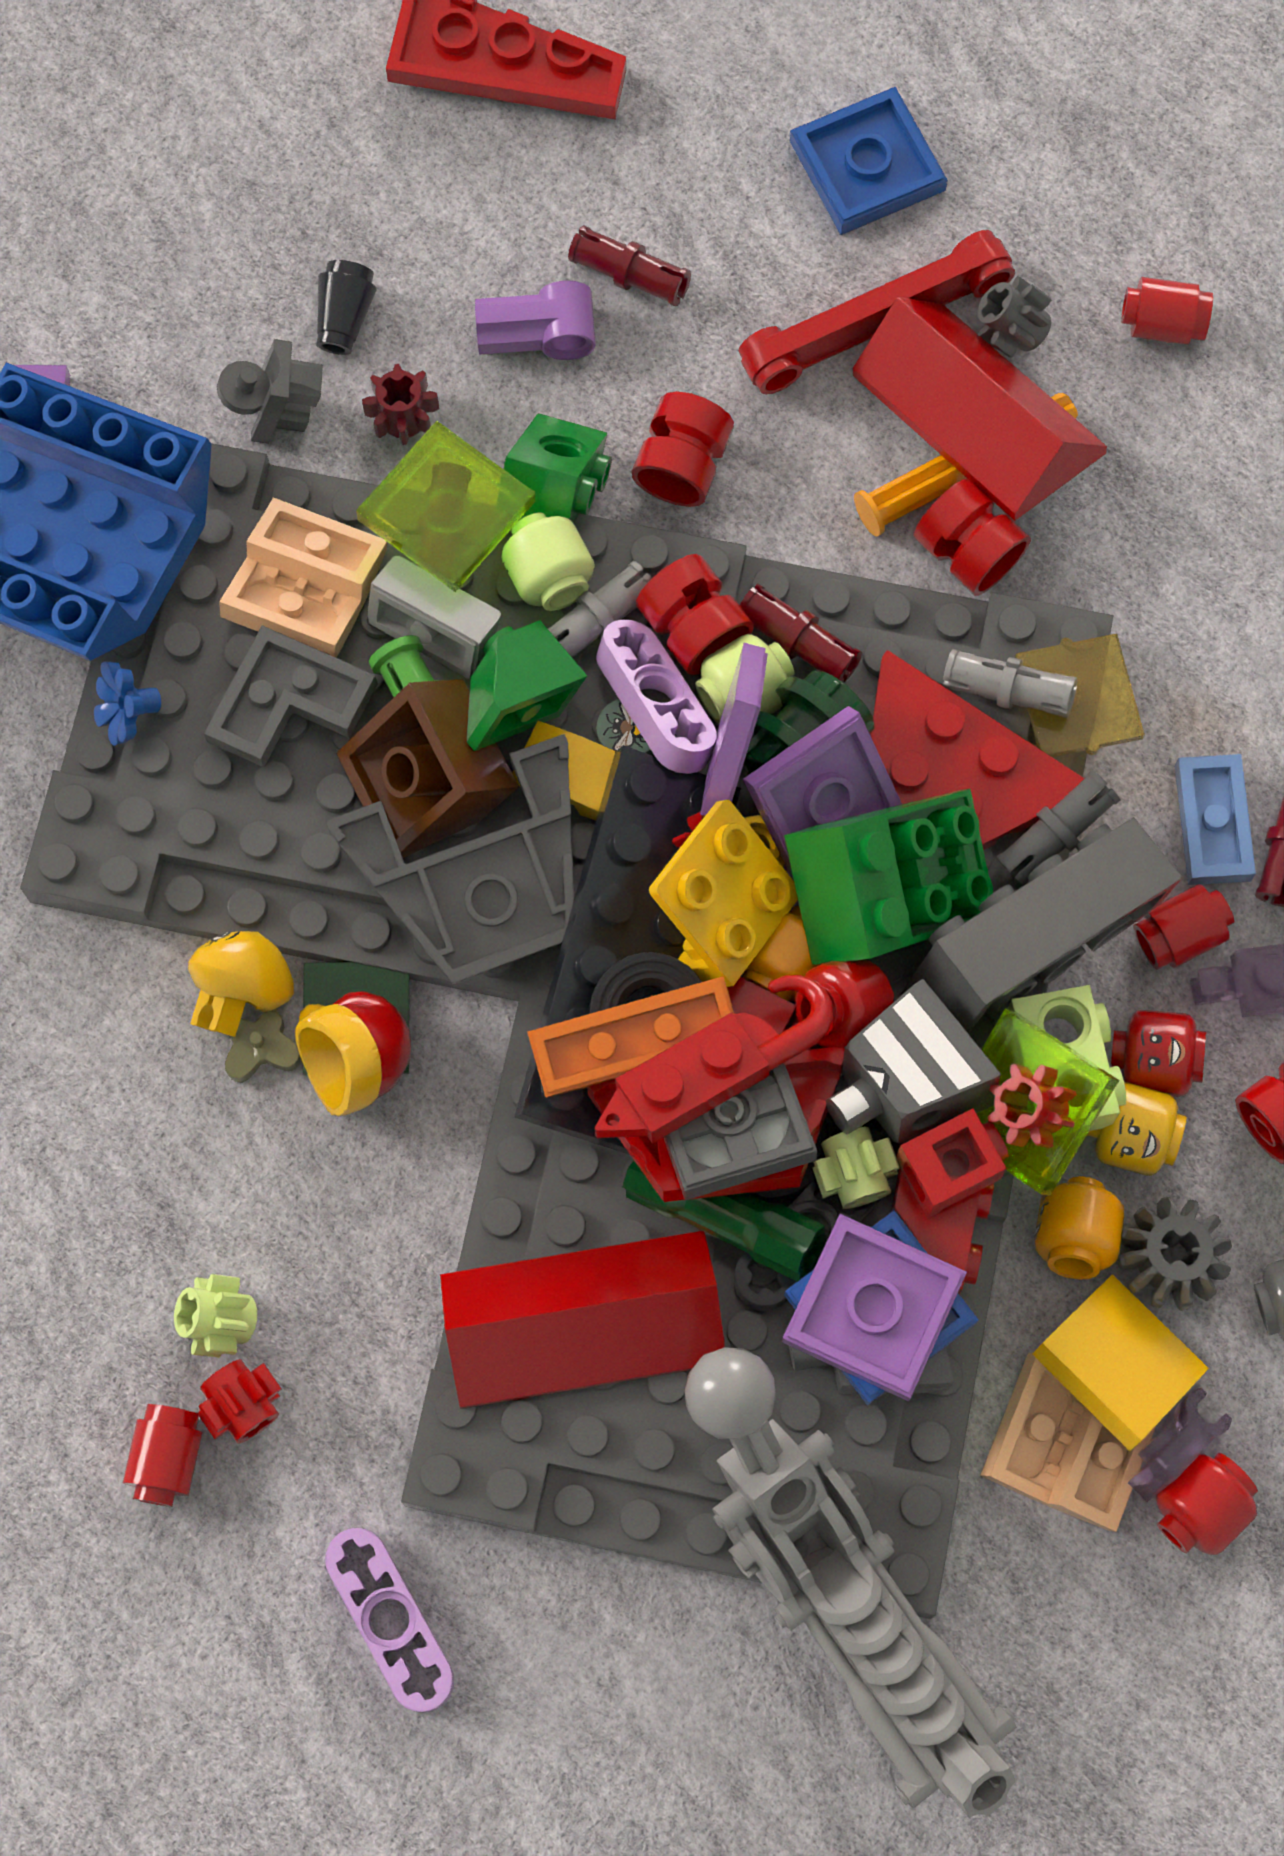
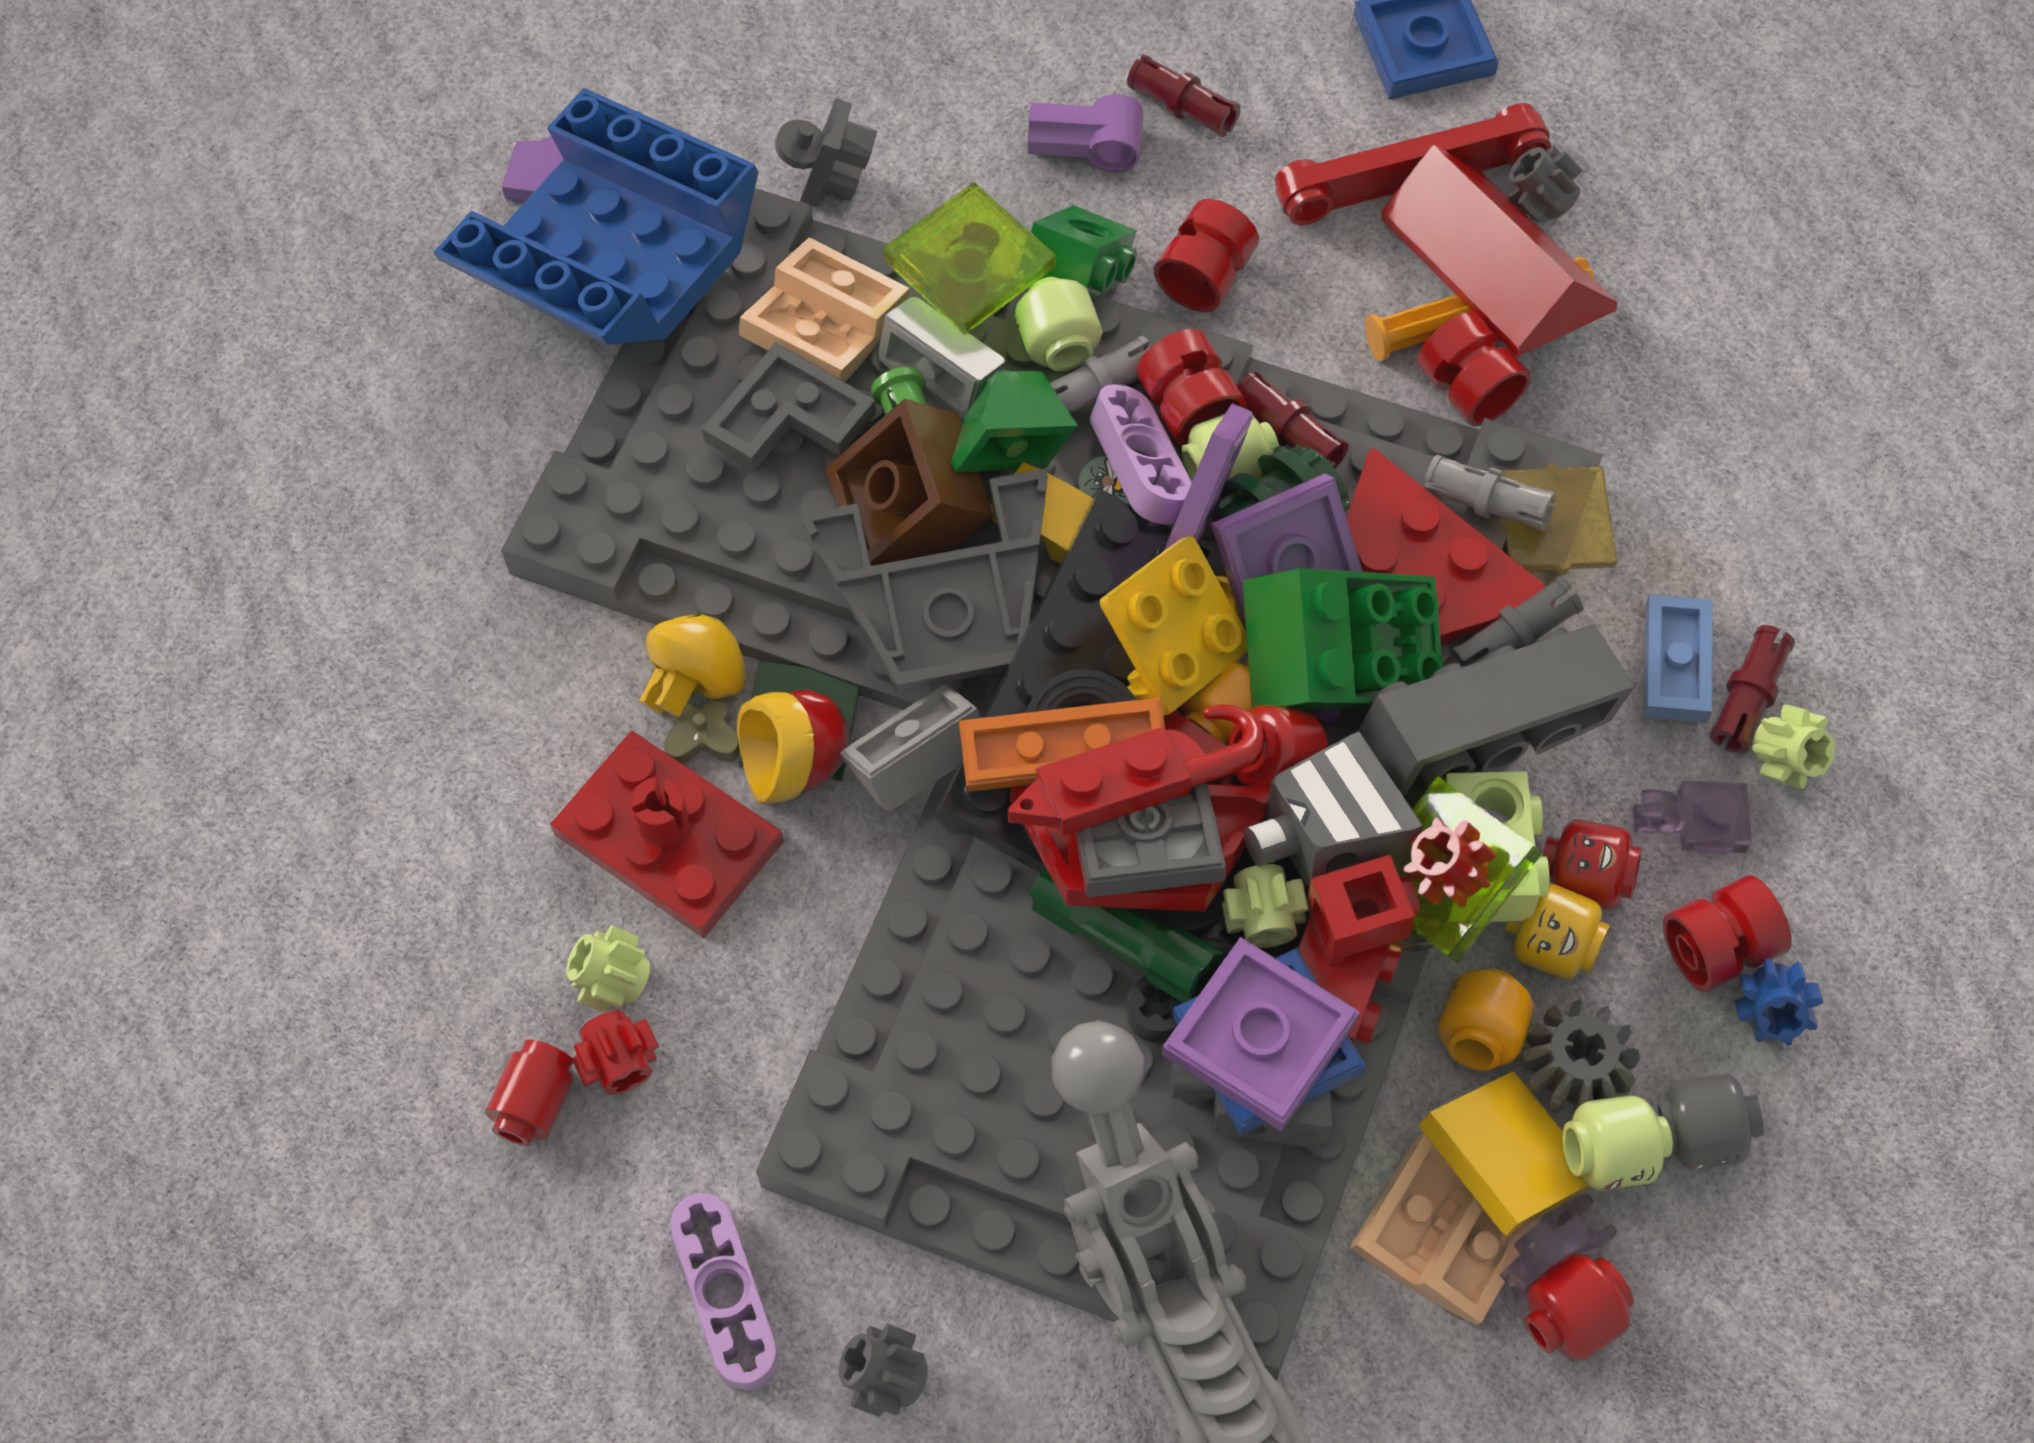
camera: 10 degrees right, 10 degrees down
(122, 702) = (631, 393): blue plant -> none
(245, 1158) = (667, 833): none -> red plate
(343, 302) = (908, 92): black cone -> none
(400, 404) = (942, 177): dark red gear -> none
(479, 1041) = (911, 748): none -> light grey slope
(558, 1677) = (883, 1370): none -> dark grey gear
(581, 1319) = (957, 1018): red slope -> none
(1167, 311) = (1694, 198): red brick -> none
(1184, 927) = (1633, 752): red brick -> none
(1222, 1338) = (1616, 1143): none -> yellowish green head

